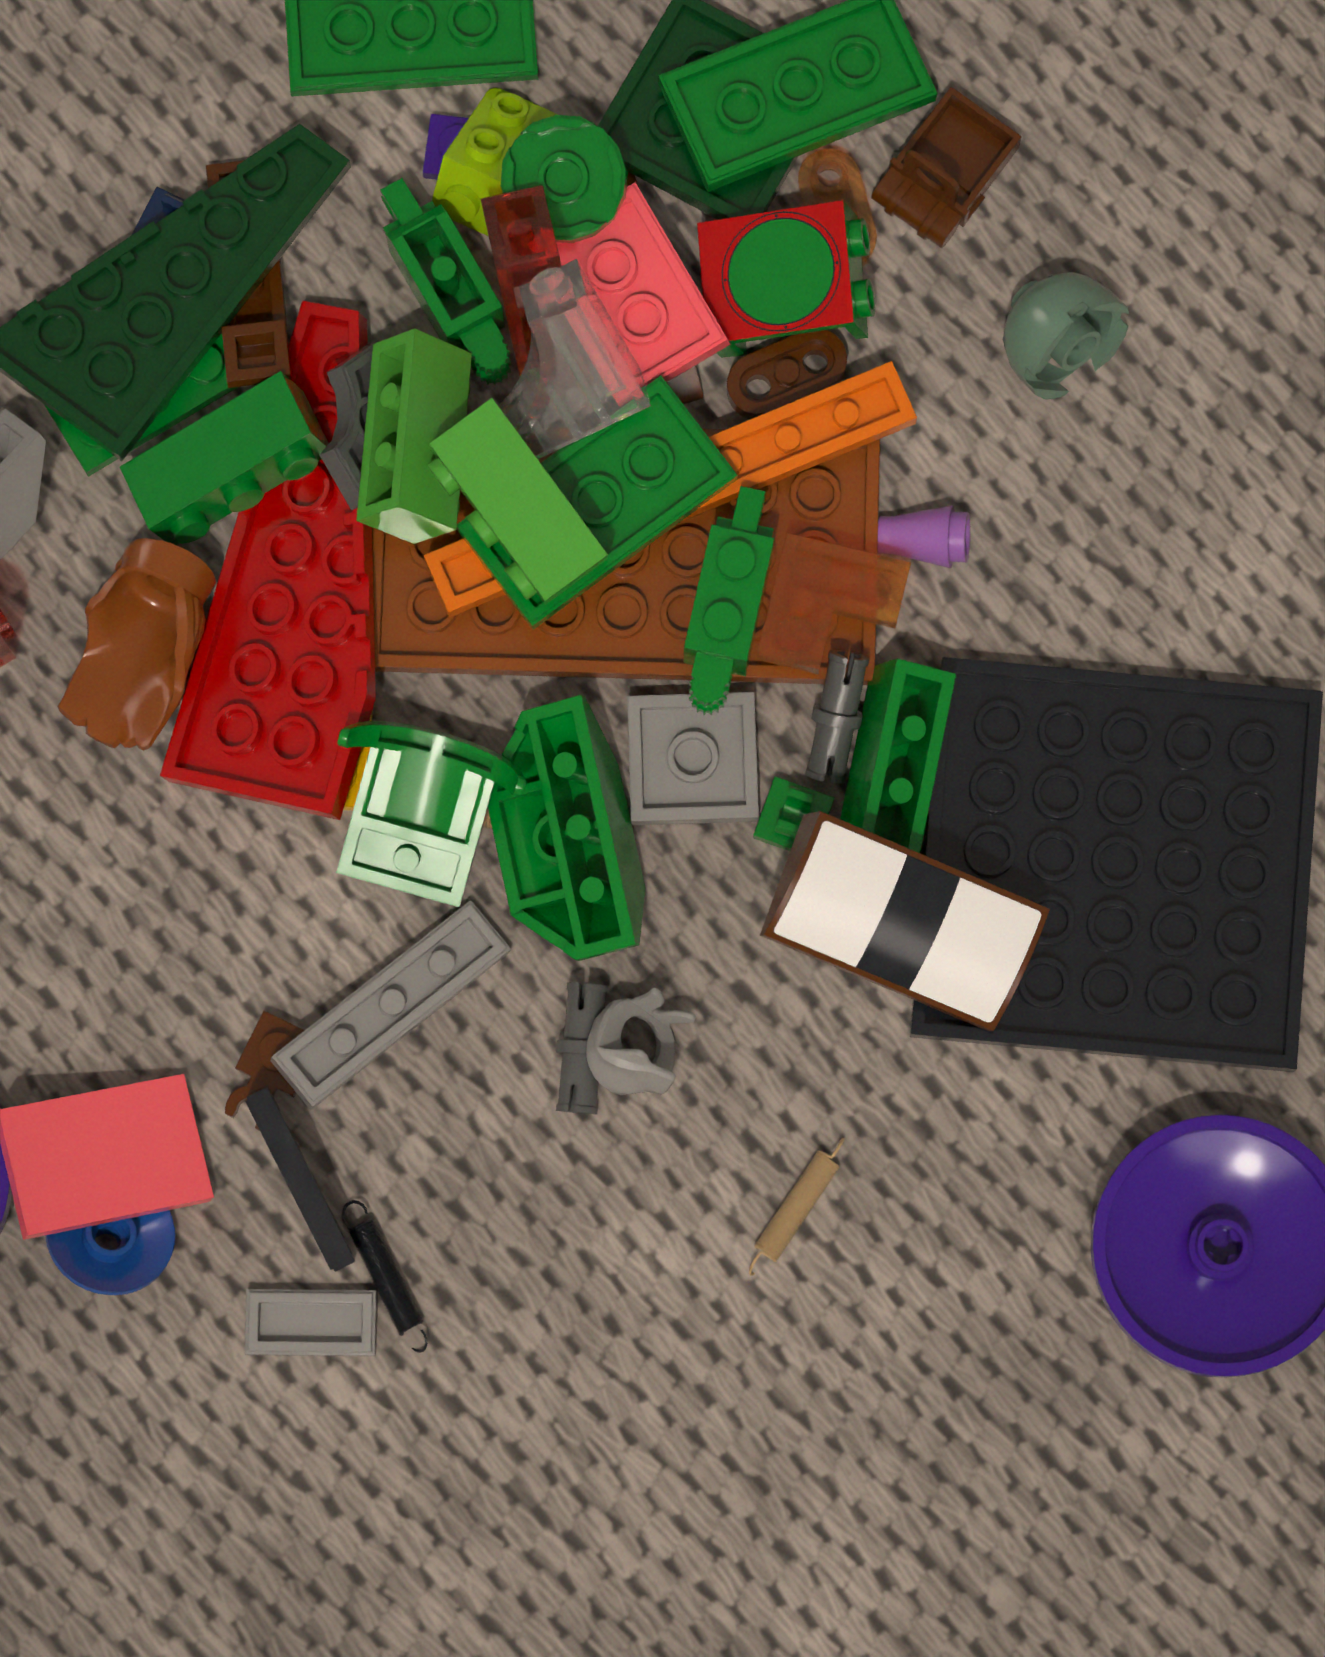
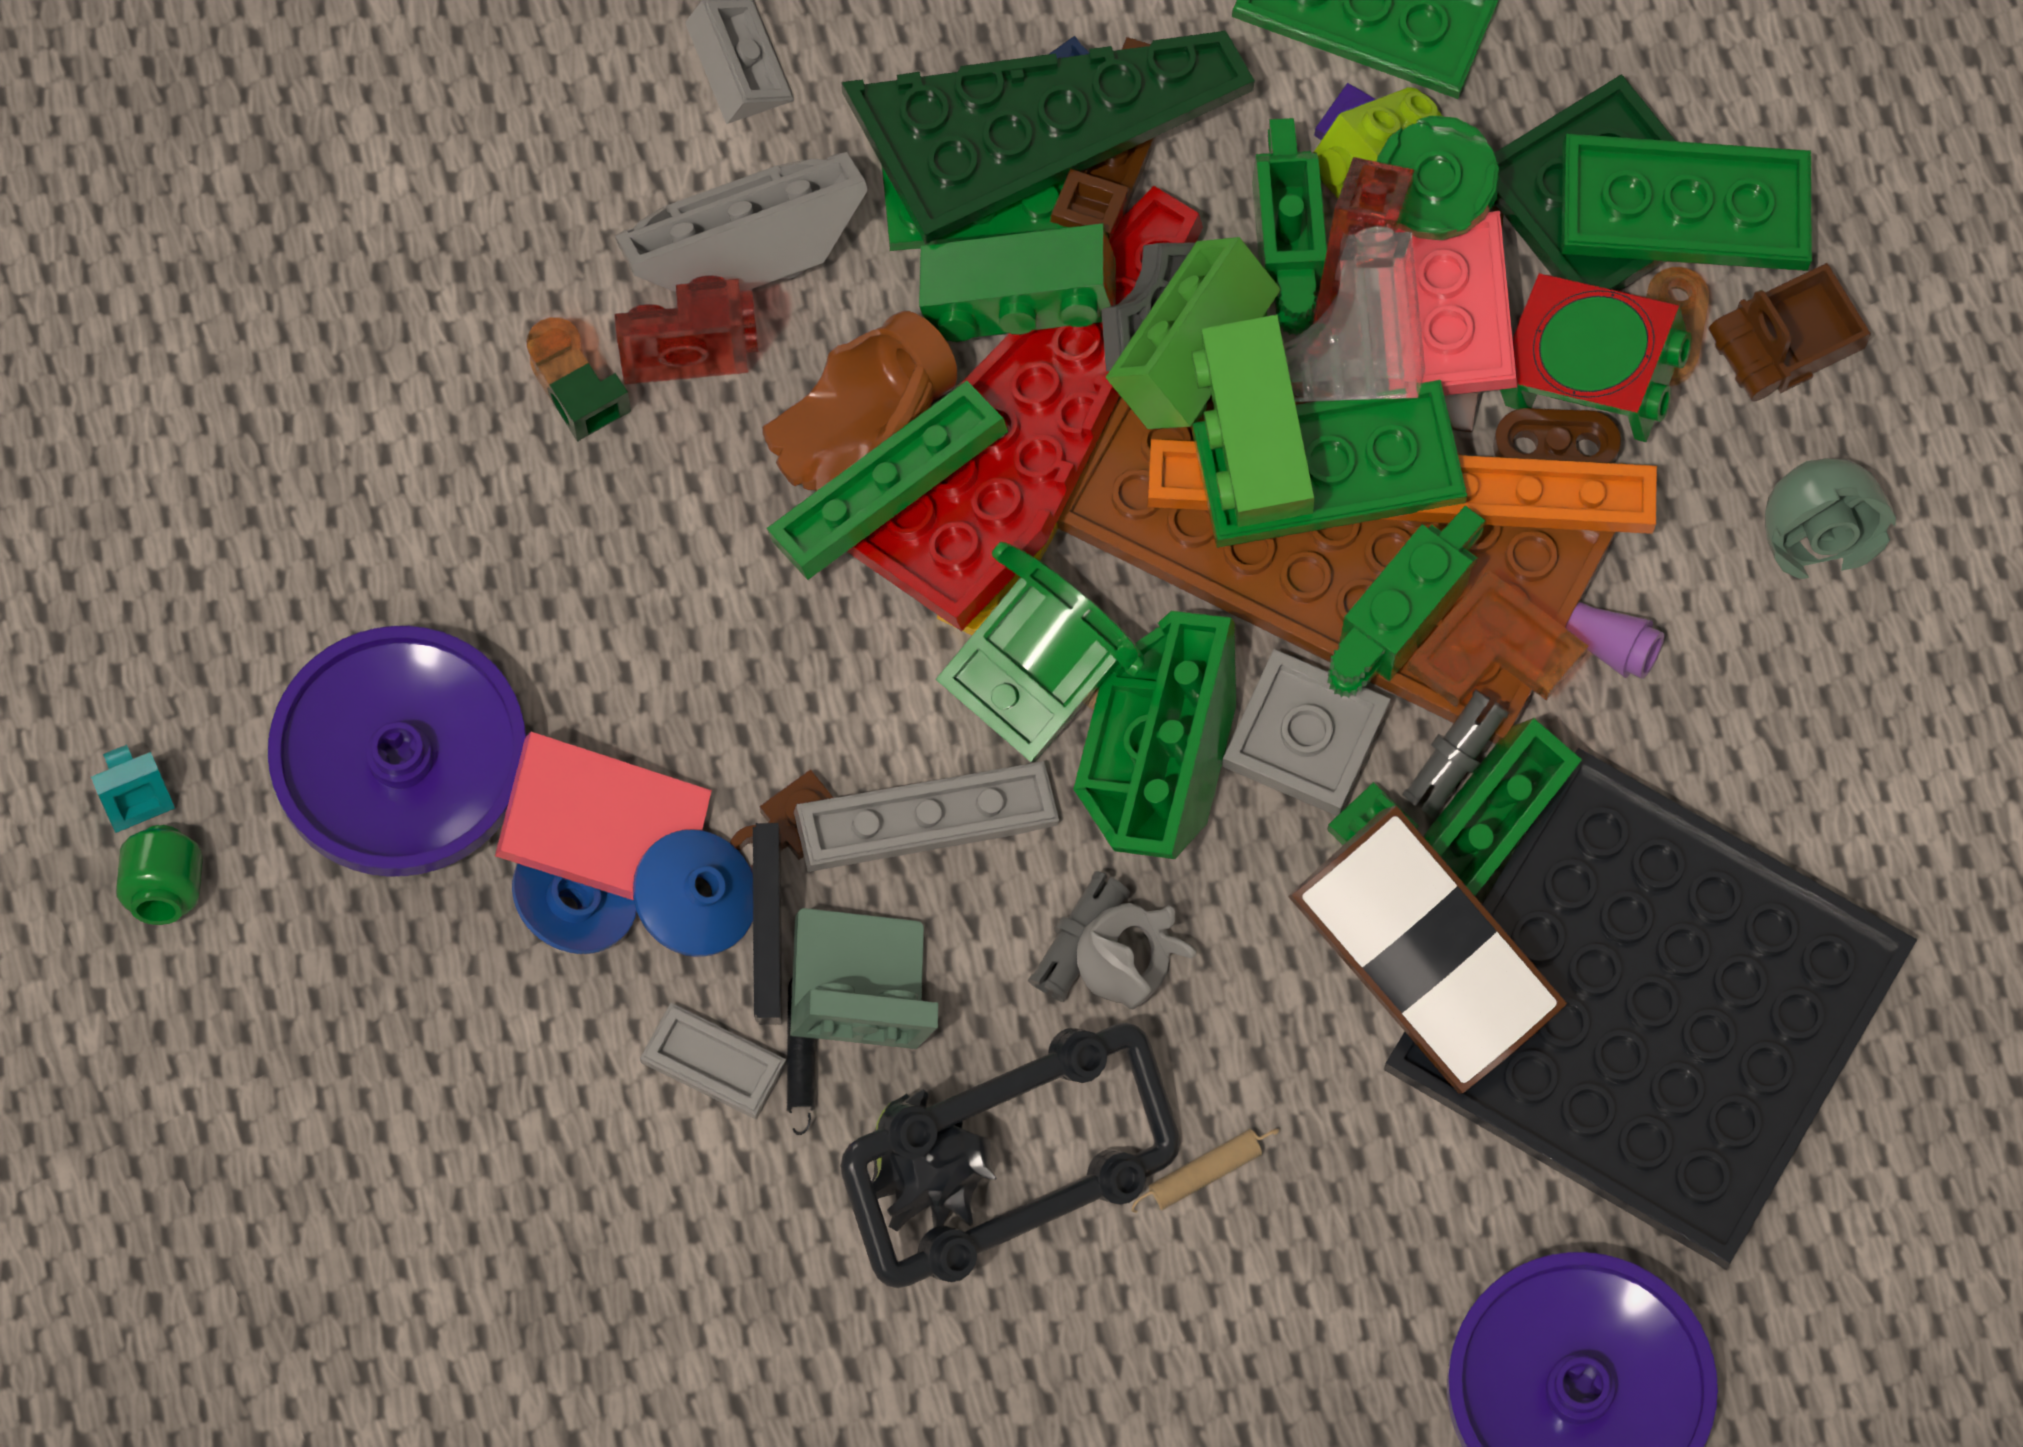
camera: 25 degrees right, 10 degrees down
(194, 1193) = (676, 911): none -> blue dish
(201, 708) = (887, 480): none -> green plate
(406, 1186) = (859, 980): none -> sand green bracket
(534, 1323) = (912, 1132): none -> black bar
(550, 1326) = (939, 1178): none -> black hair

